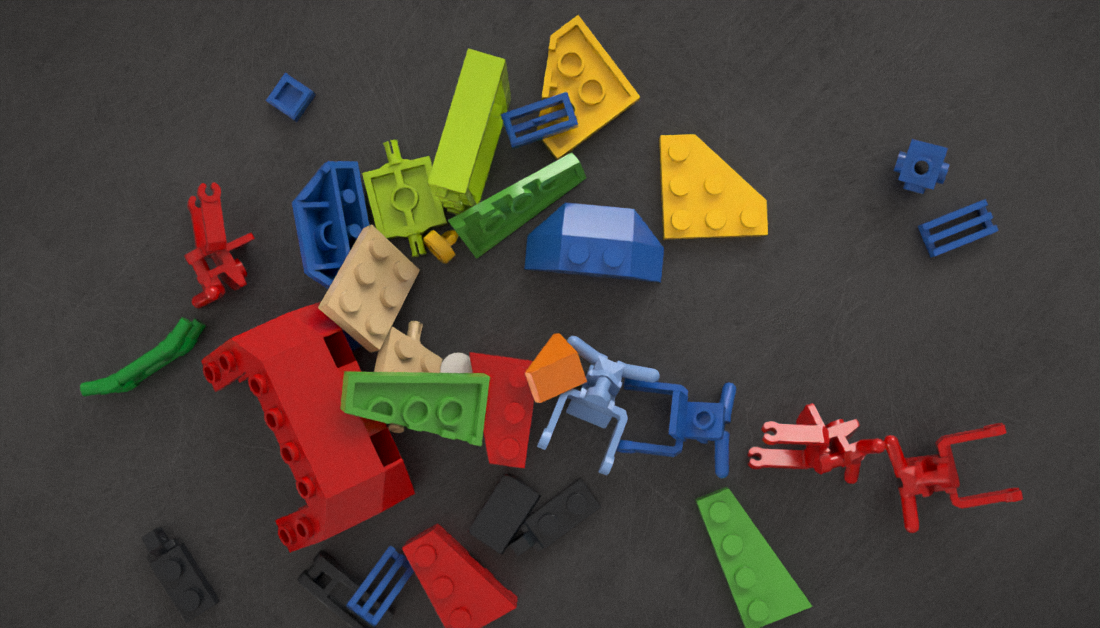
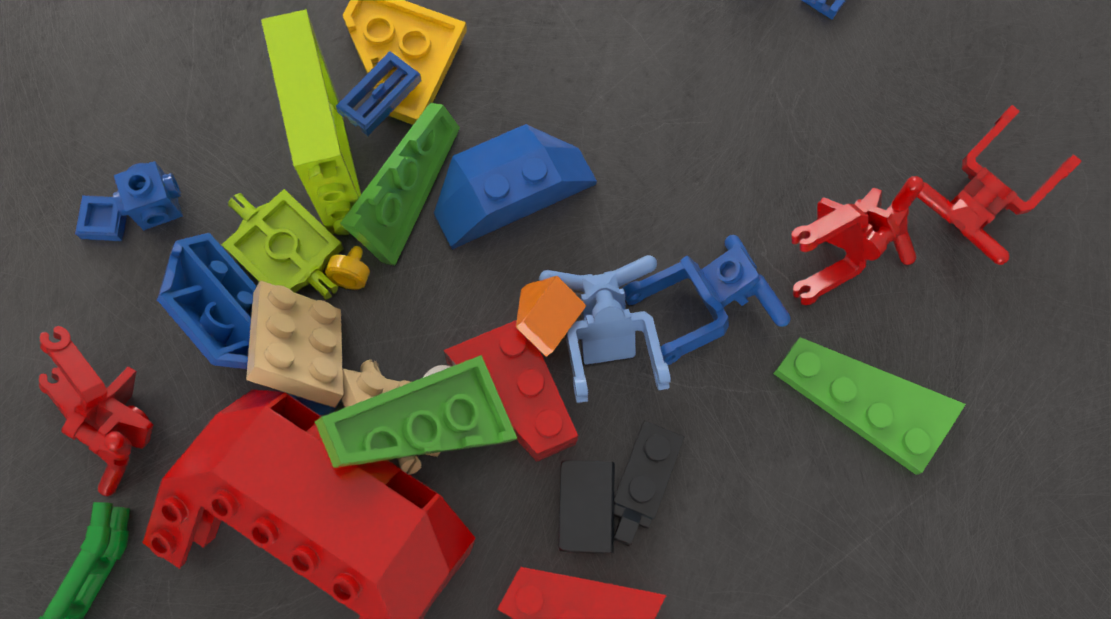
camera: 35 degrees left, 15 degrees down
(337, 111) = (147, 195): none -> blue brick
(705, 194) = (585, 78): yellow plate -> none

